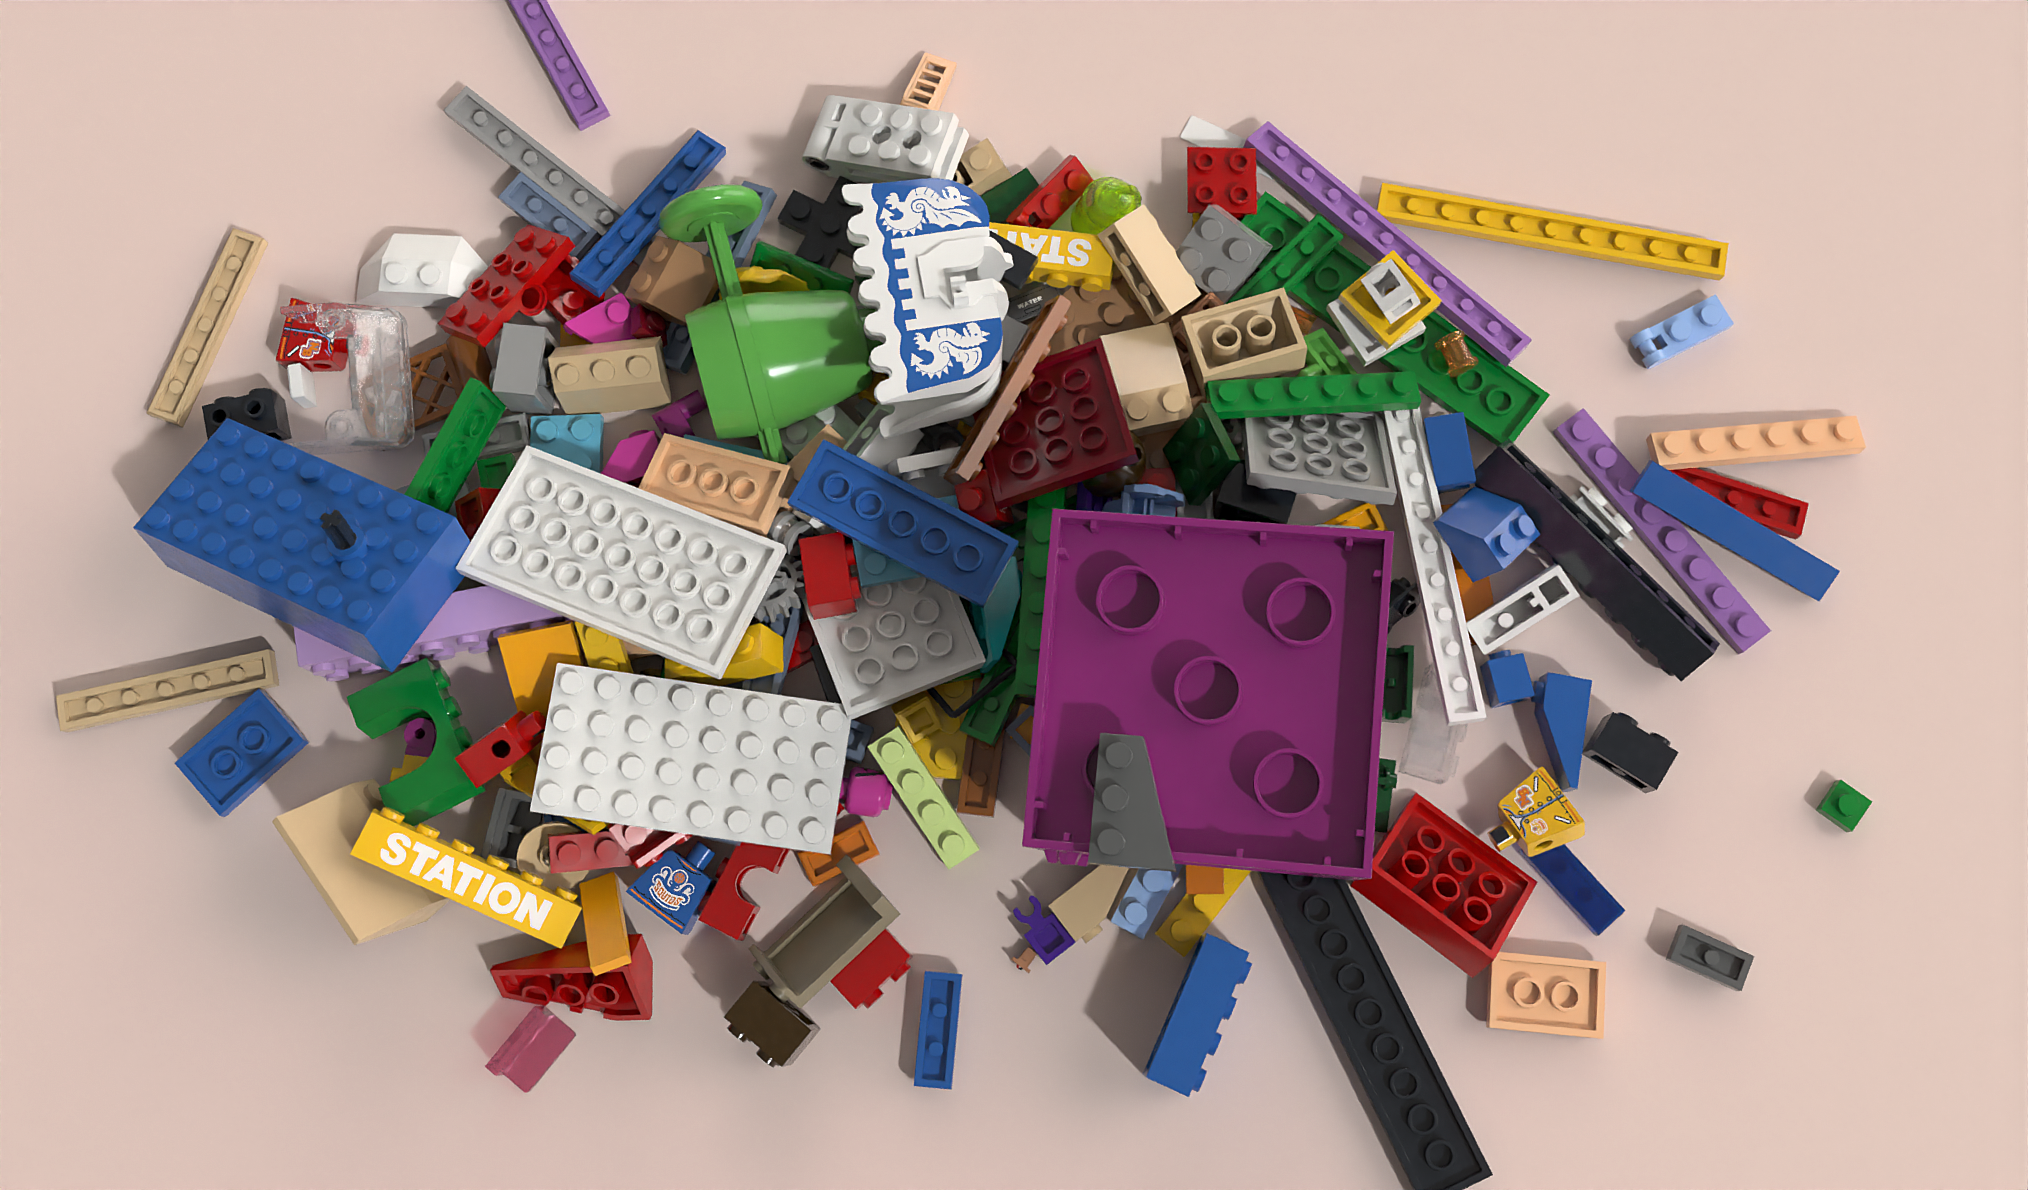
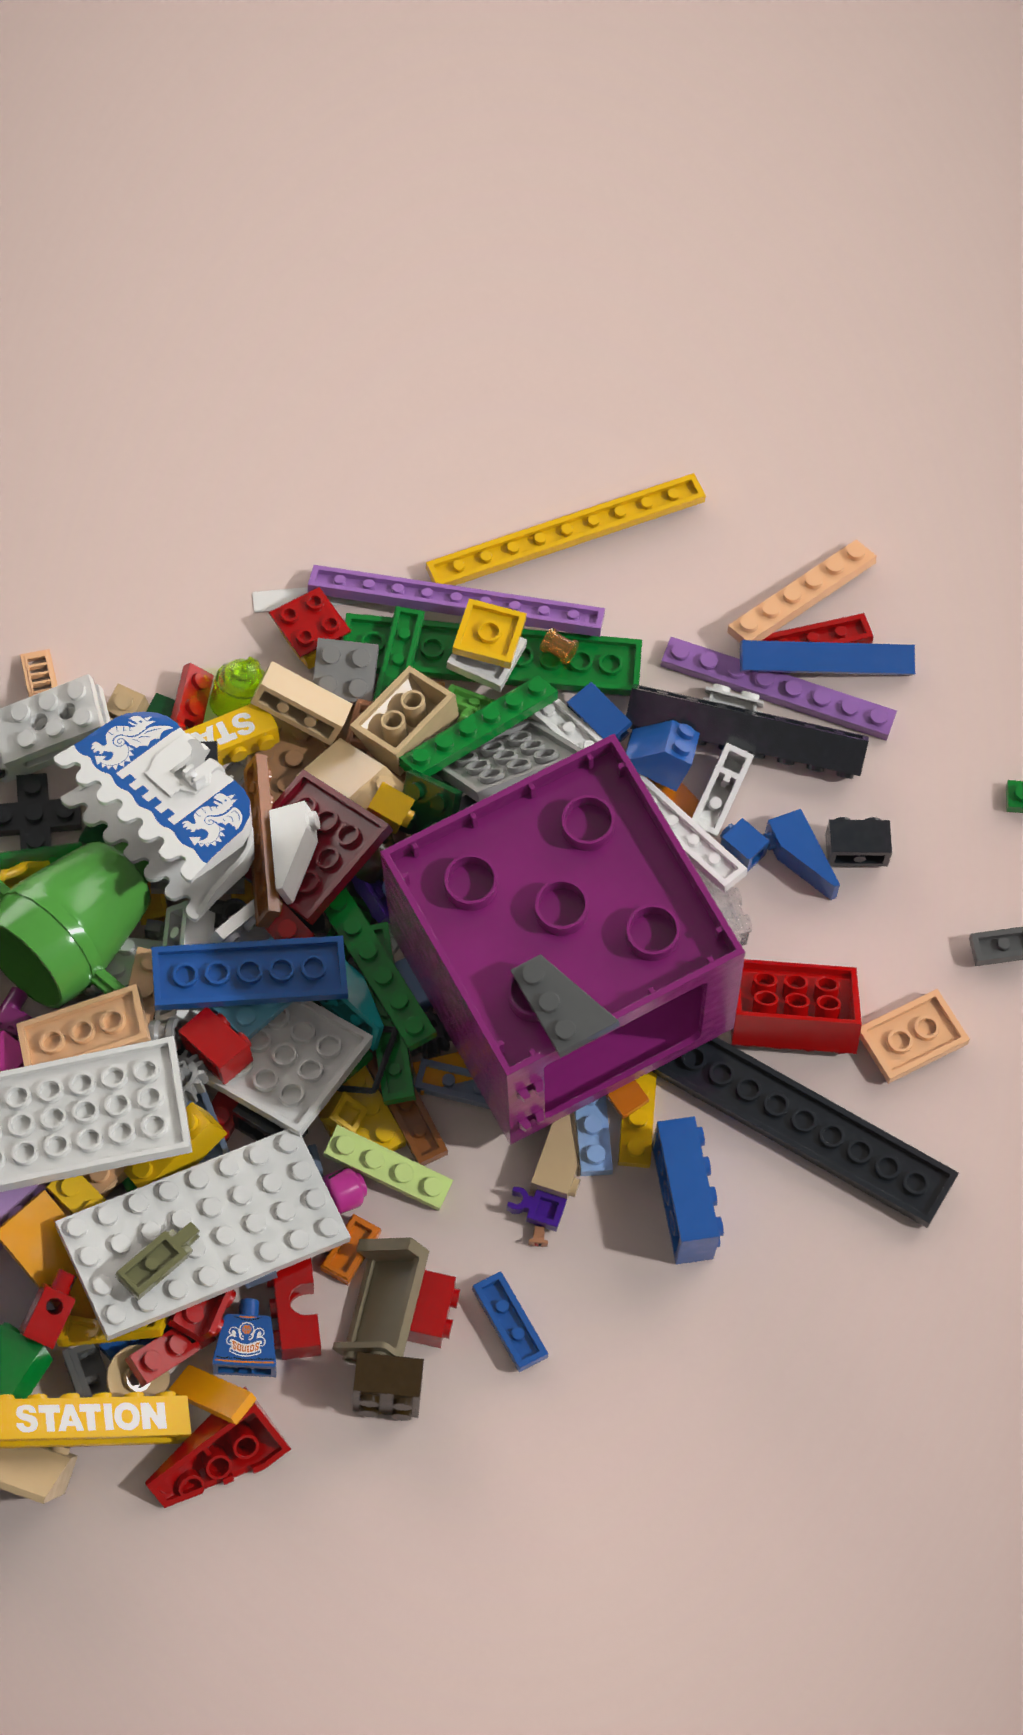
camera: 45 degrees left, 15 degrees down
(531, 1048) = (215, 1527): clear pink panel -> none
(618, 768) = (157, 1260): none -> olive hinge
(1029, 416) = (293, 845): none -> white slope
(1158, 432) = (392, 806): none -> yellow brick
(1397, 302) = (479, 615): white brick -> none
(1536, 817) = (826, 920): yellow torso -> none
(1577, 887) = (878, 952): clear blue tile -> none
(1682, 331) = (702, 549): light blue plate -> none

